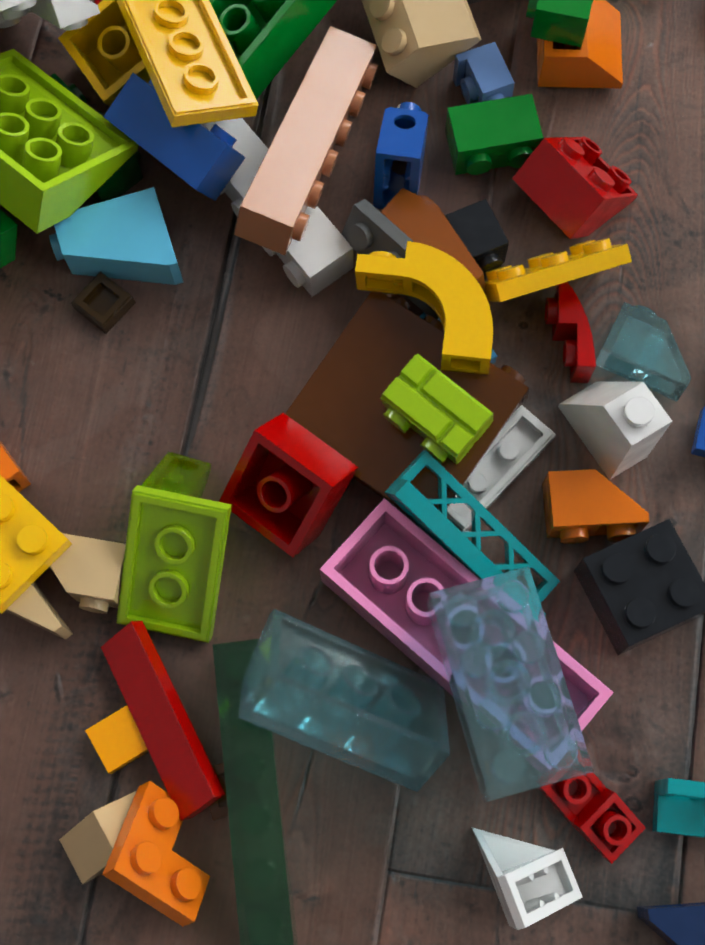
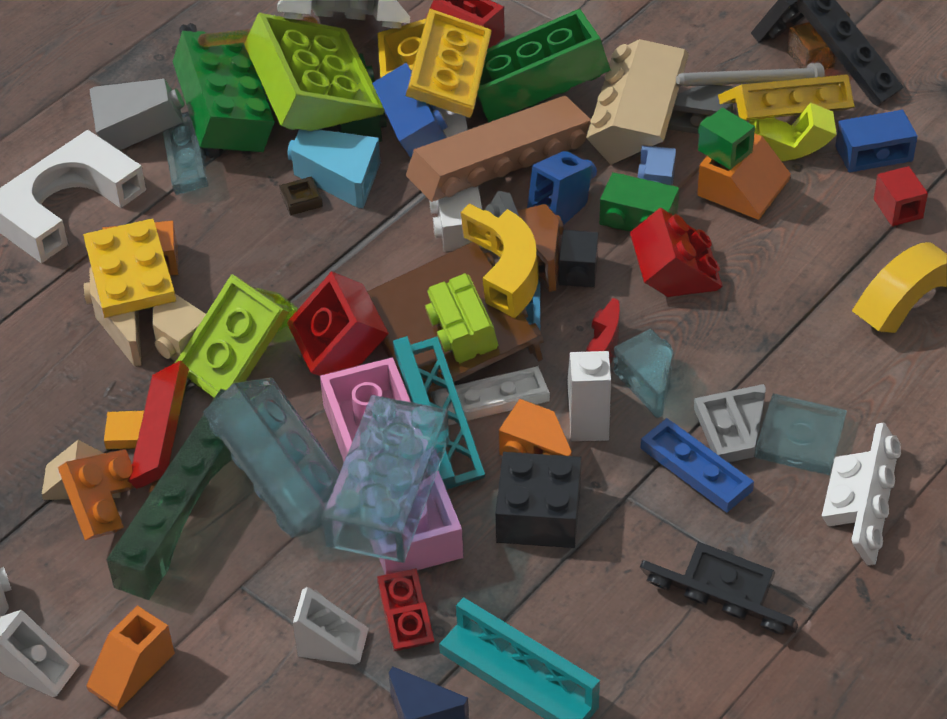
camera: 30 degrees right, 25 degrees down
(554, 269) = (592, 288): yellow plate -> none

